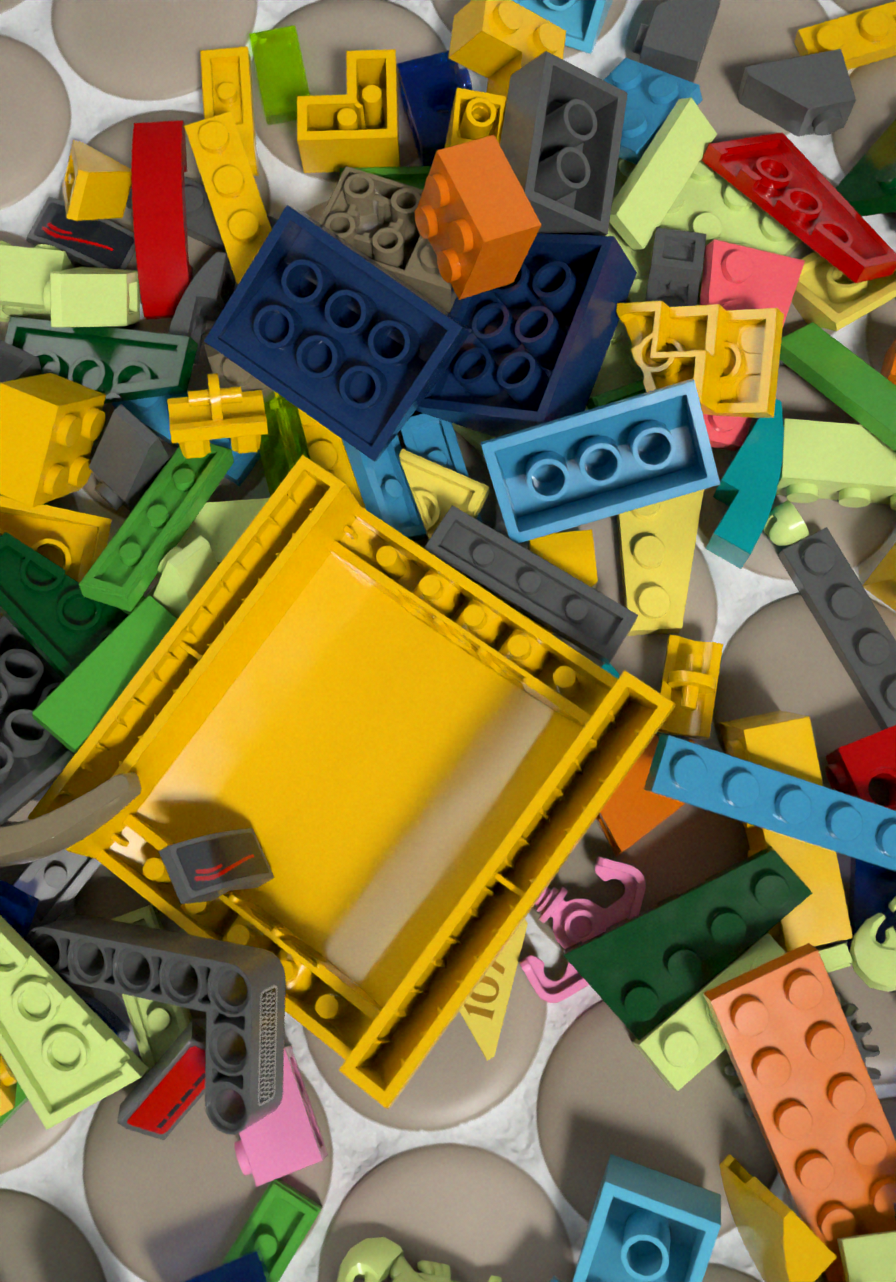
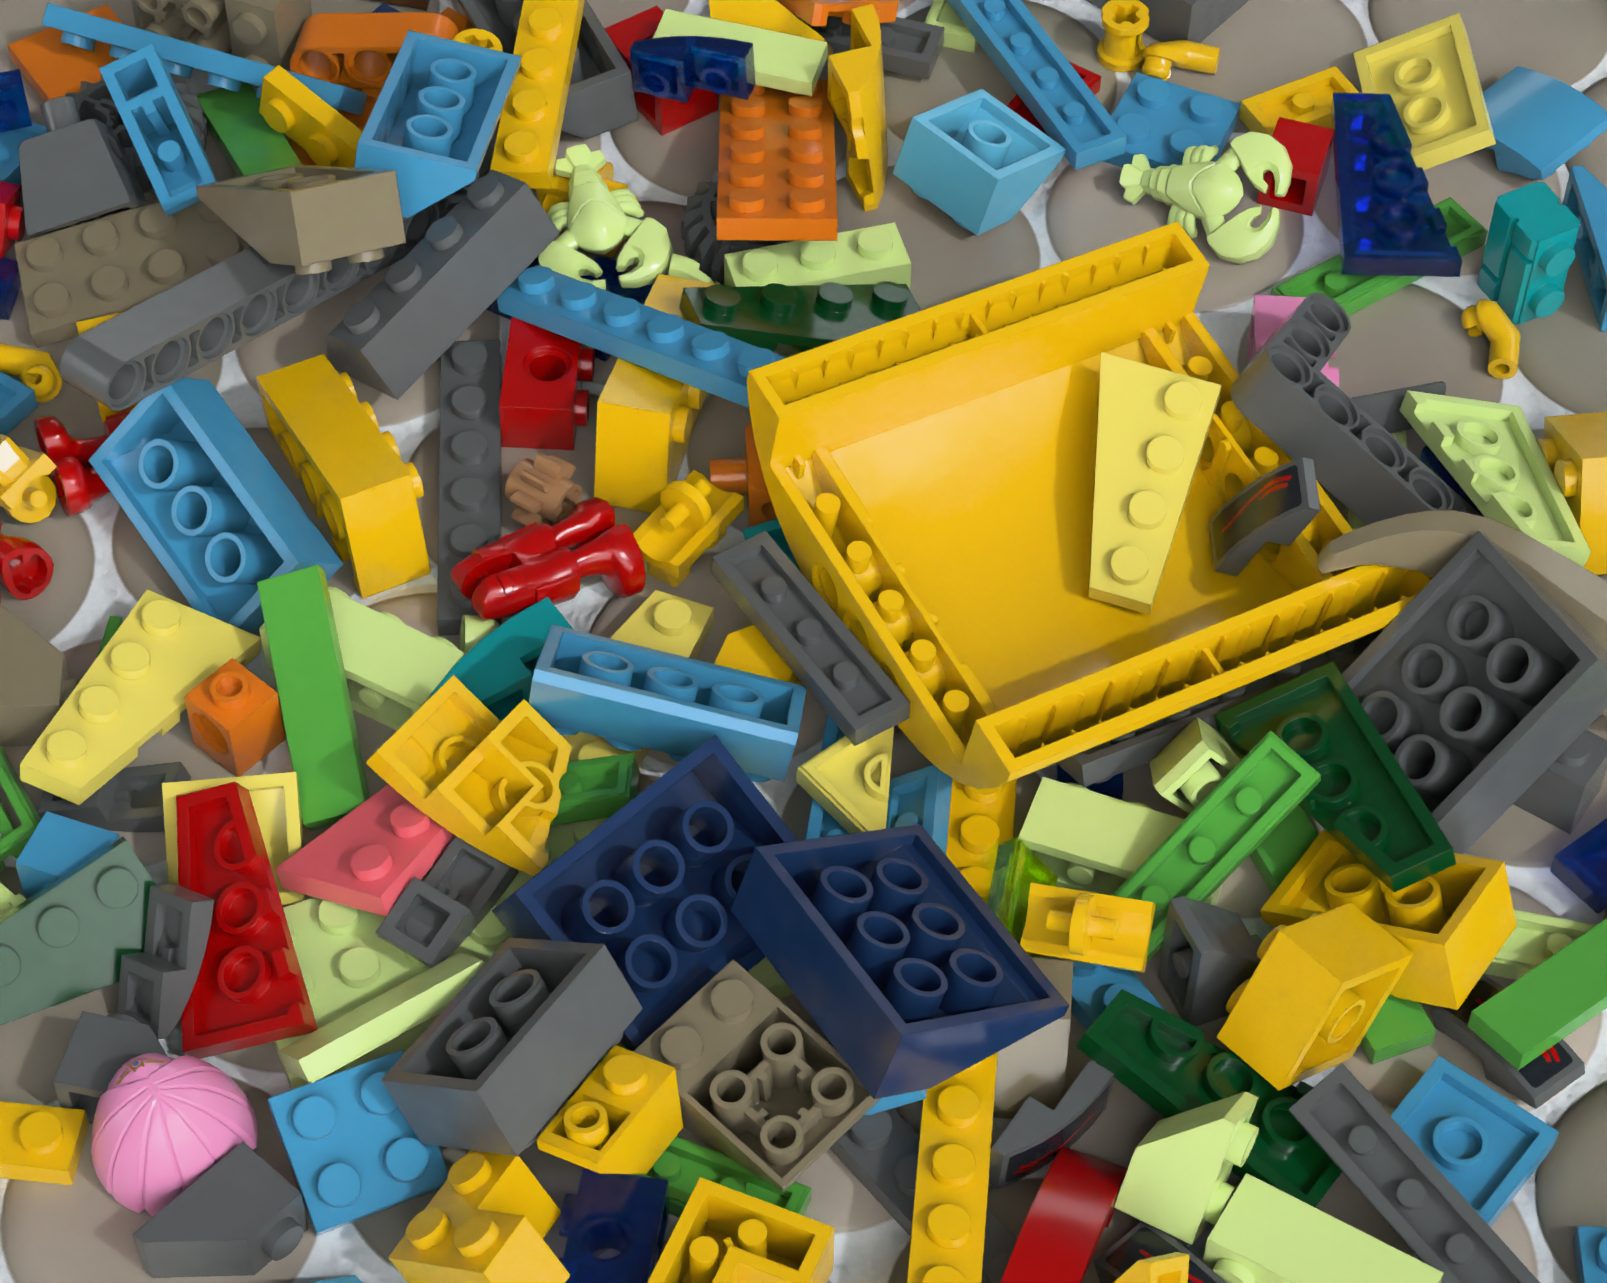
camera: 160 degrees left, 25 degrees down
(98, 681) = (1317, 692): bright green tile -> none
(98, 1250) = (1502, 334): none -> yellow arm
(335, 880) = (1146, 460): none -> light yellow wing
(476, 217) = (674, 957): orange brick -> none
(742, 62) = (166, 1128): none -> bright pink hair
(781, 586) = (538, 562): none -> red piece
(817, 673) = (542, 490): none -> medium nougat gear
(831, 163) = (161, 979): none -> dark grey slope

